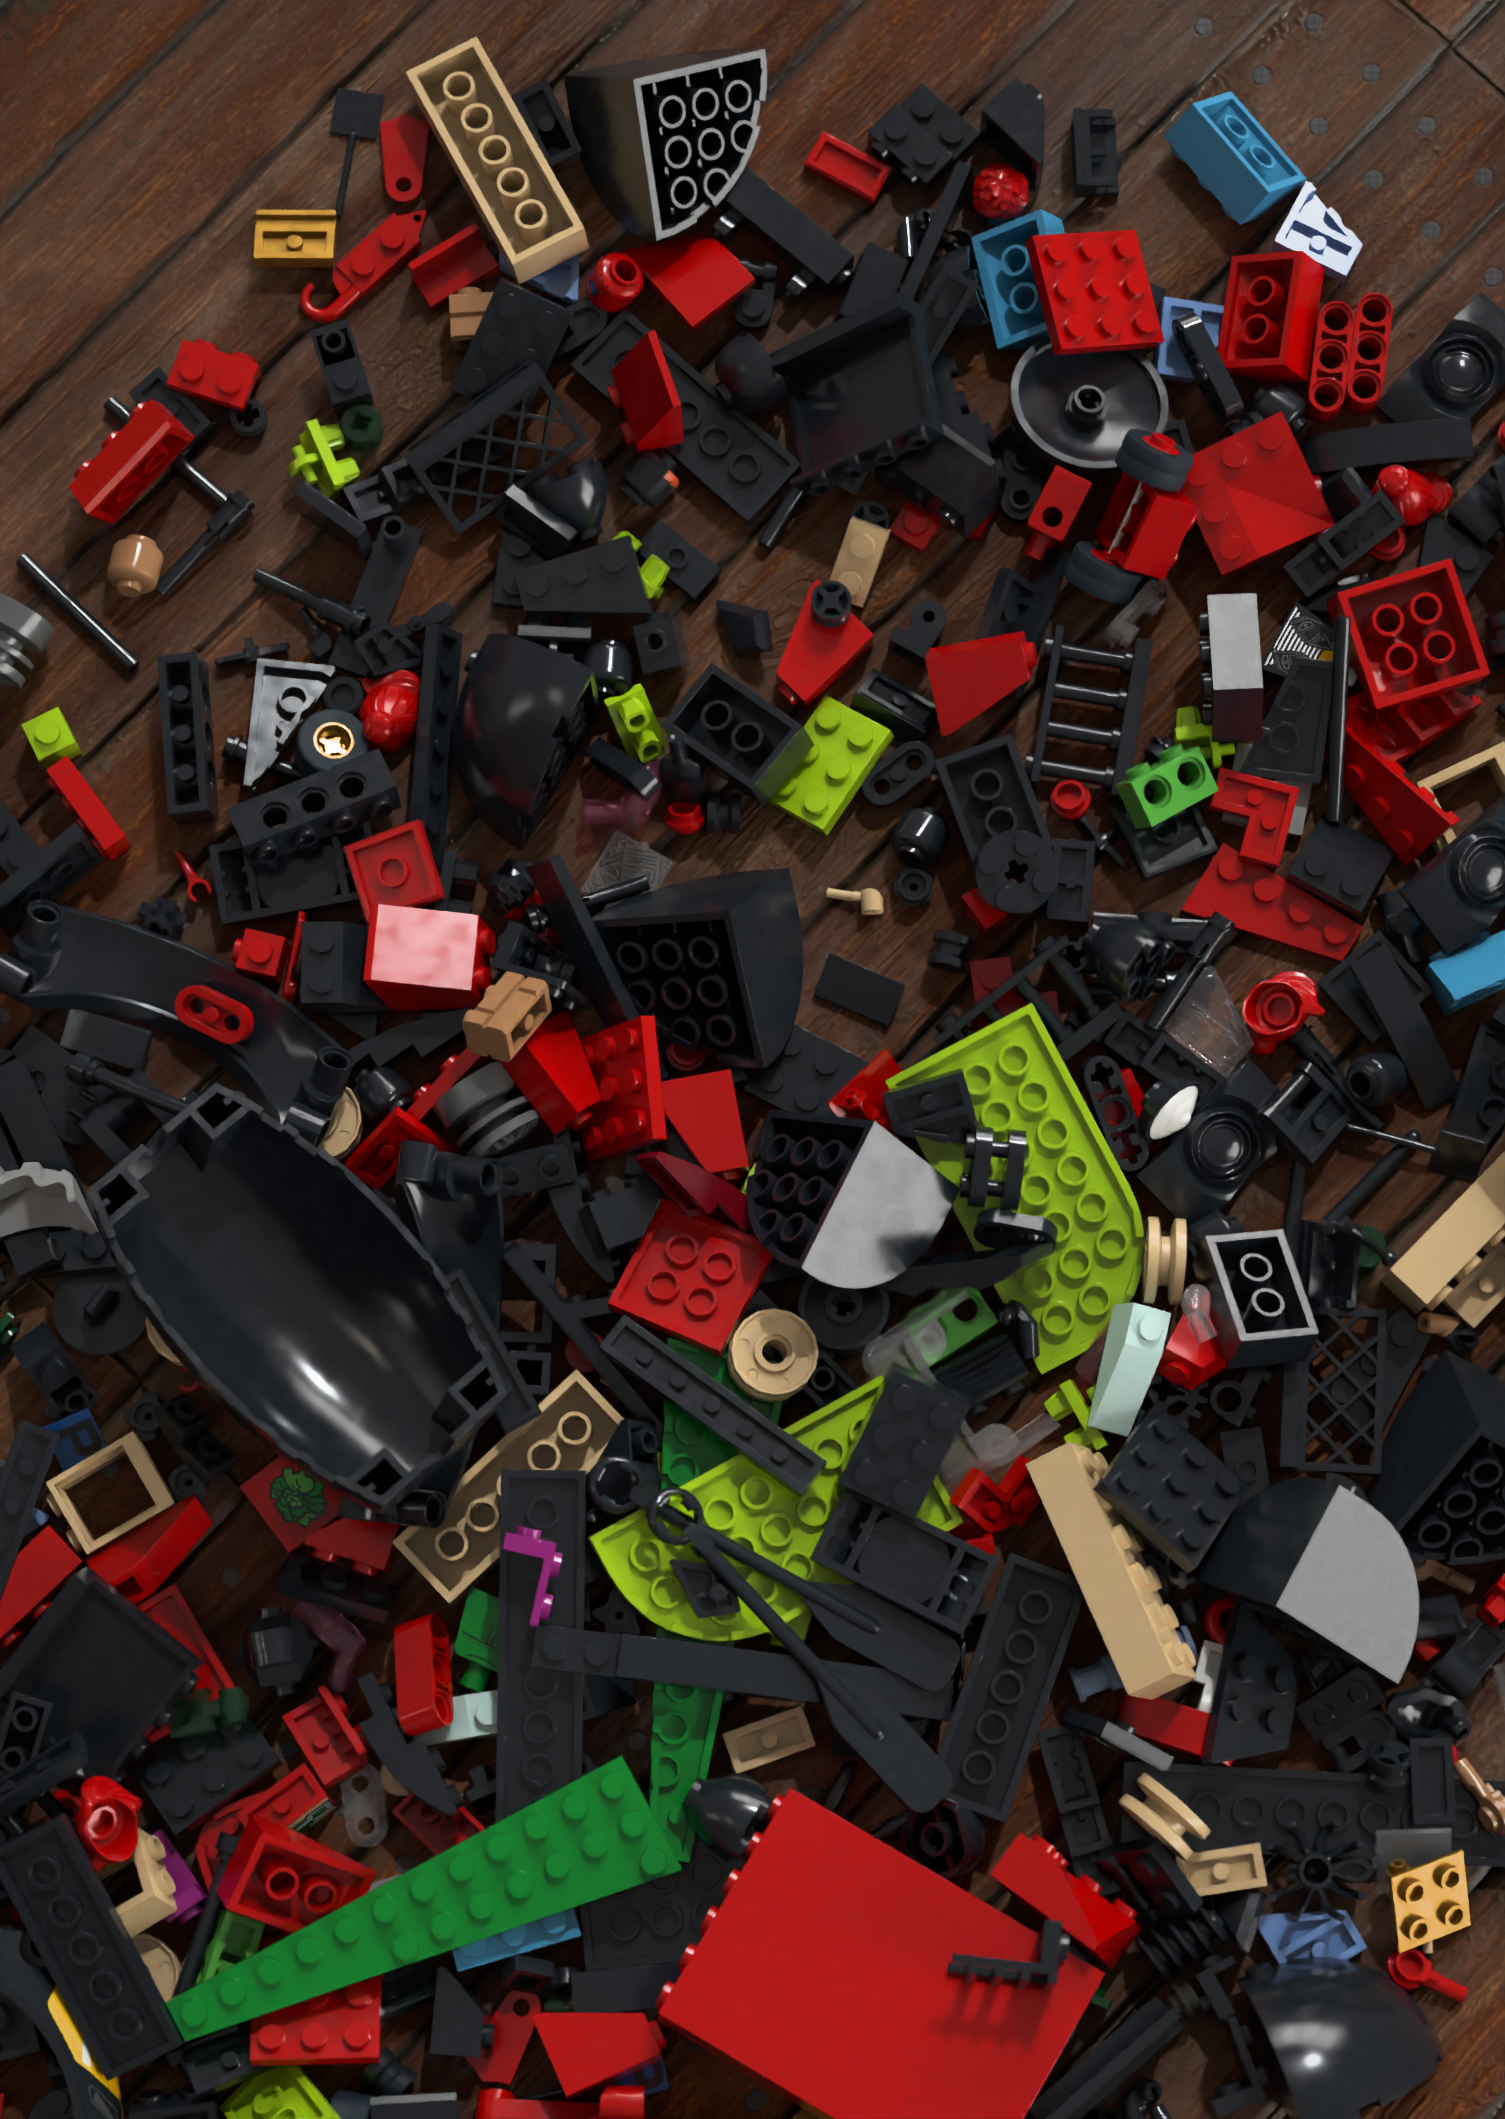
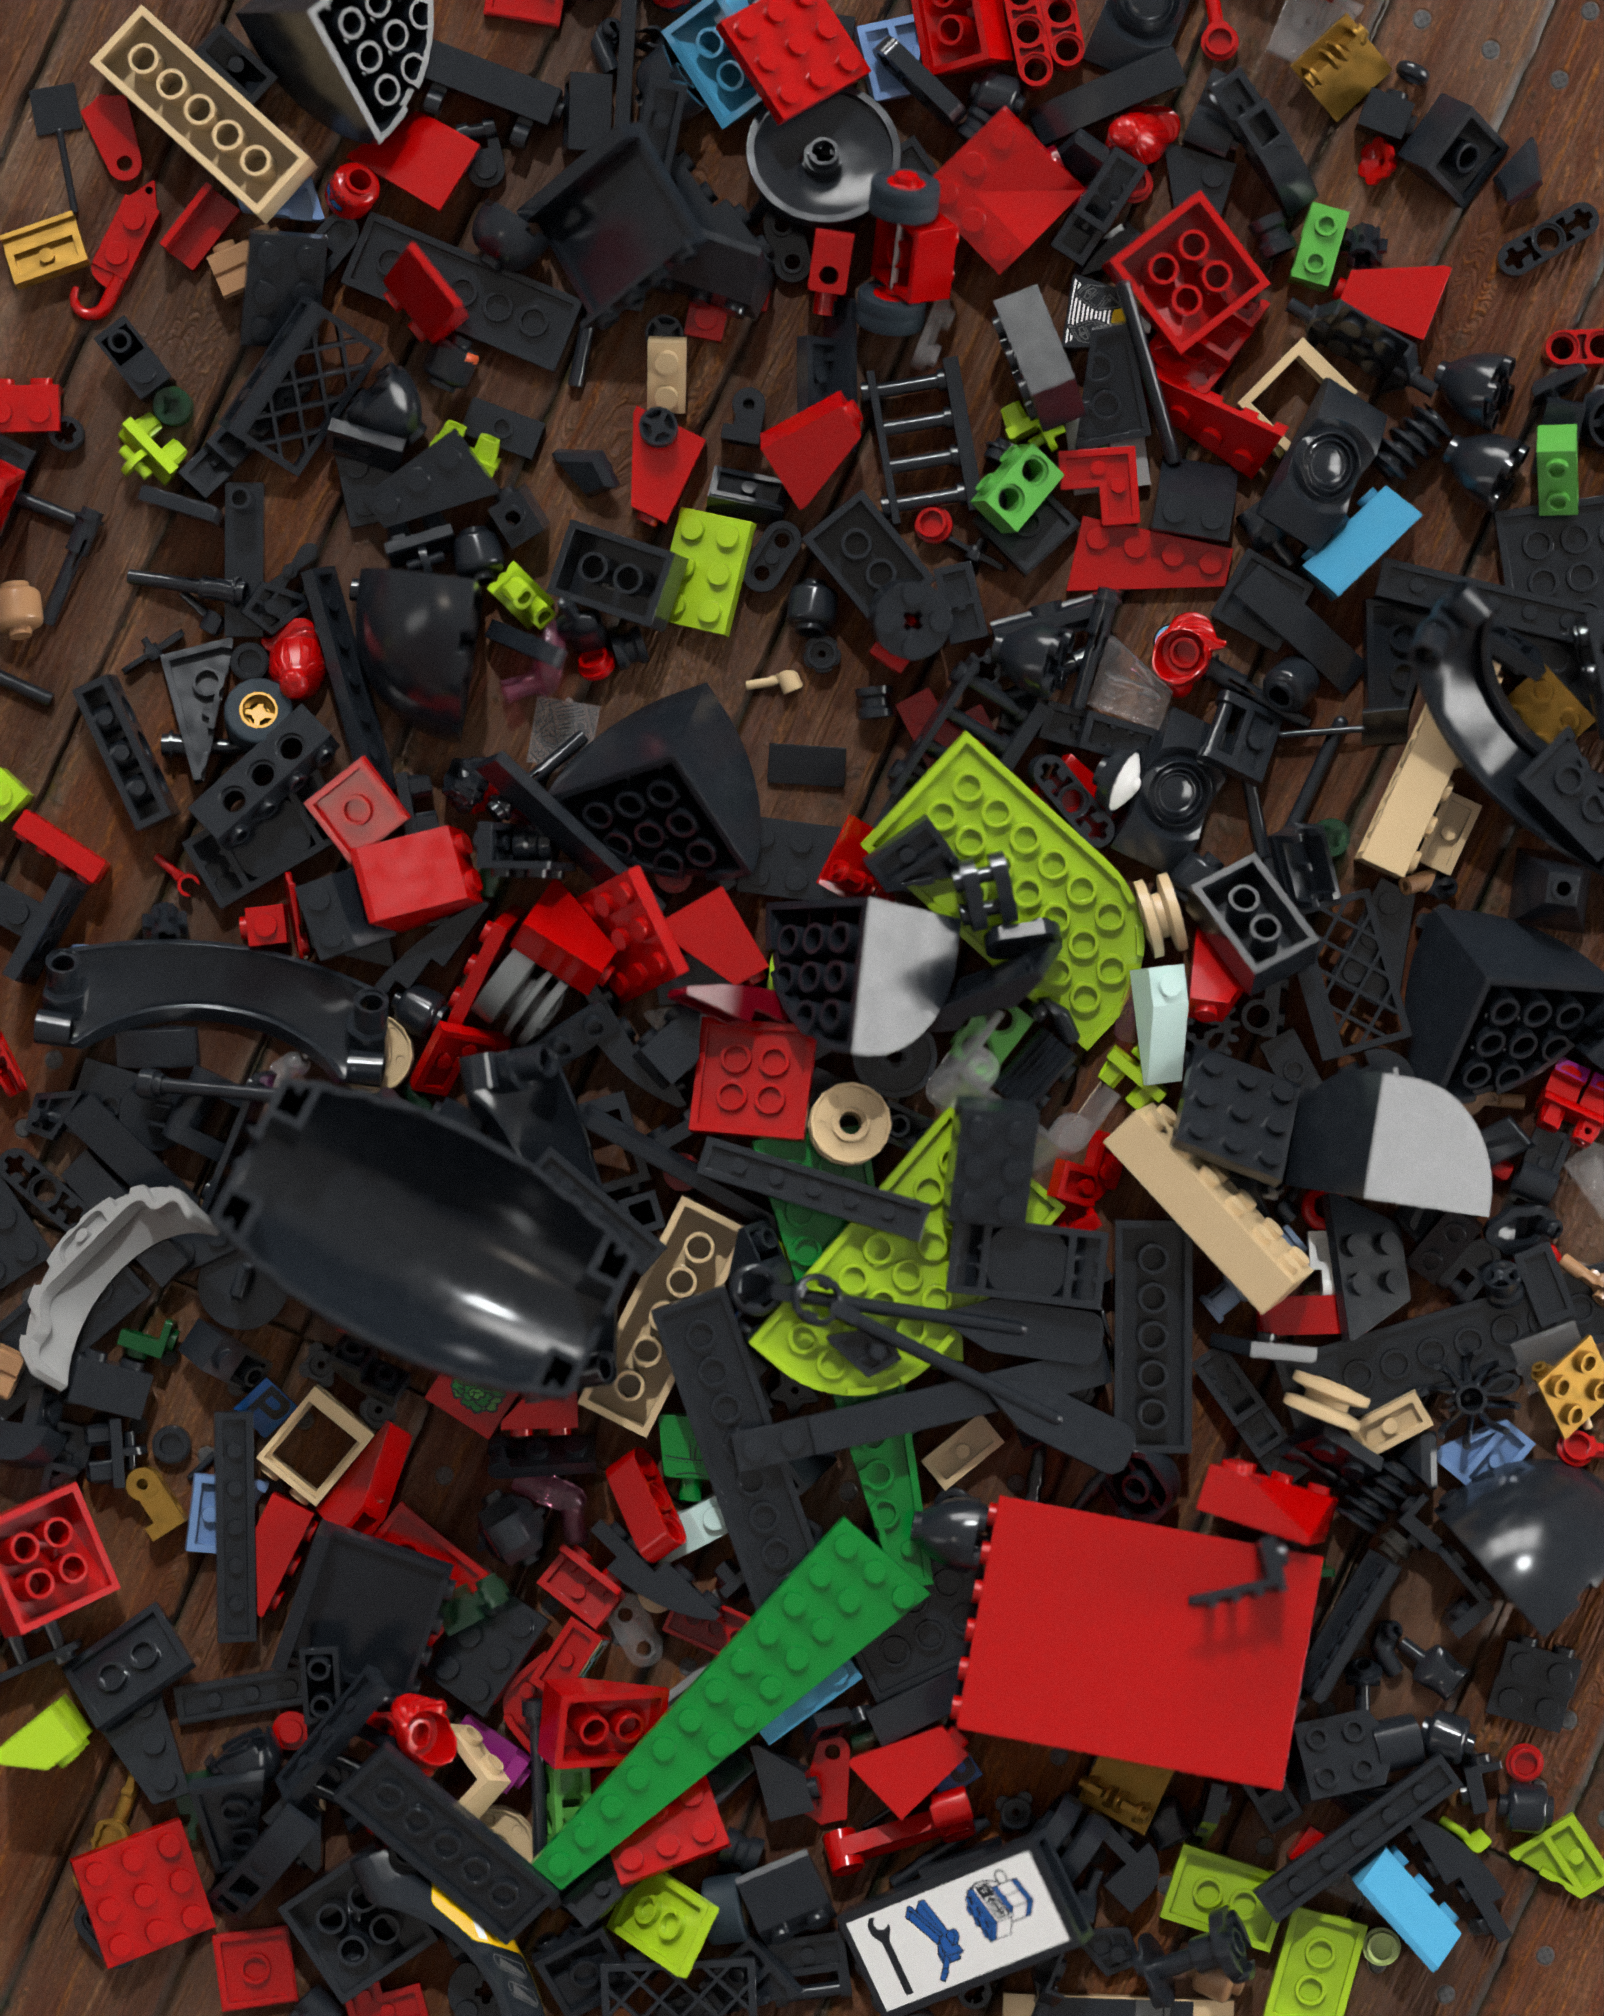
camera: 25 degrees left, 10 degrees up
(216, 1016) = (247, 994): red plate -> none
(506, 1016) = (508, 911): medium nougat brick -> none
(528, 1542) = (699, 1368): magenta bracket -> none
(1196, 1308) = (1205, 954): clear arm -> none
(1388, 1258) = (1309, 830): black hinge -> none

